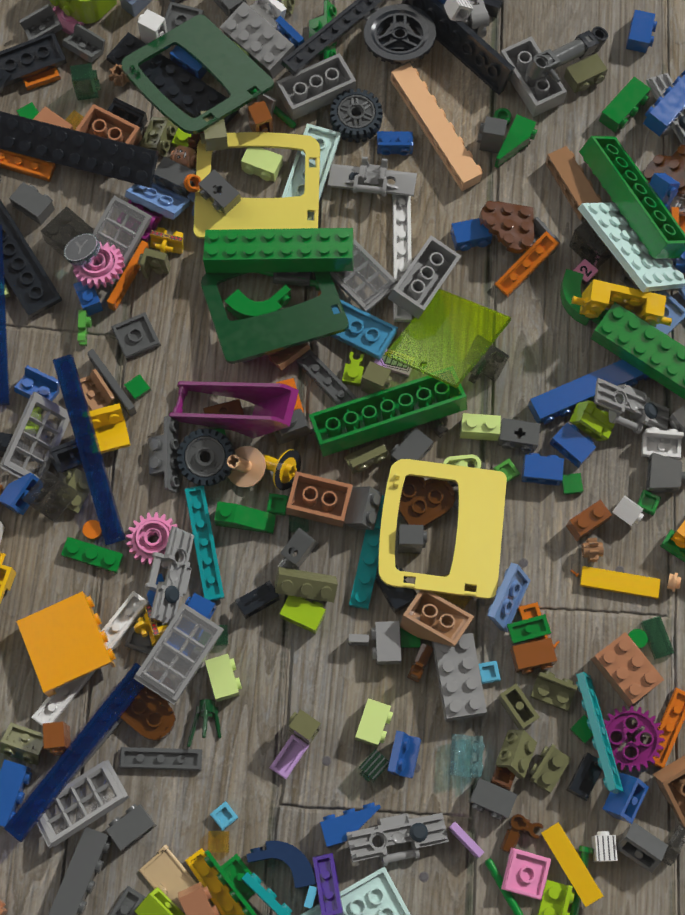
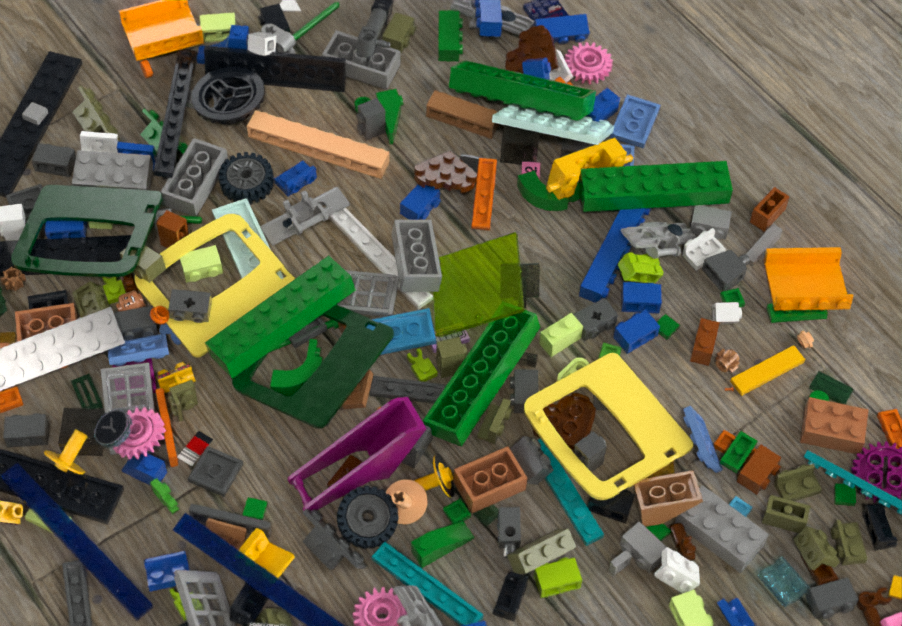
camera: 40 degrees left, 15 degrees down
(36, 247) = (65, 460): none -> yellow piece
(93, 219) = (81, 379): none -> clear green tile
(137, 307) = (195, 448): none -> sticker
(393, 682) = (678, 571): none -> white bracket
(524, 16) = (316, 20): none -> green bar

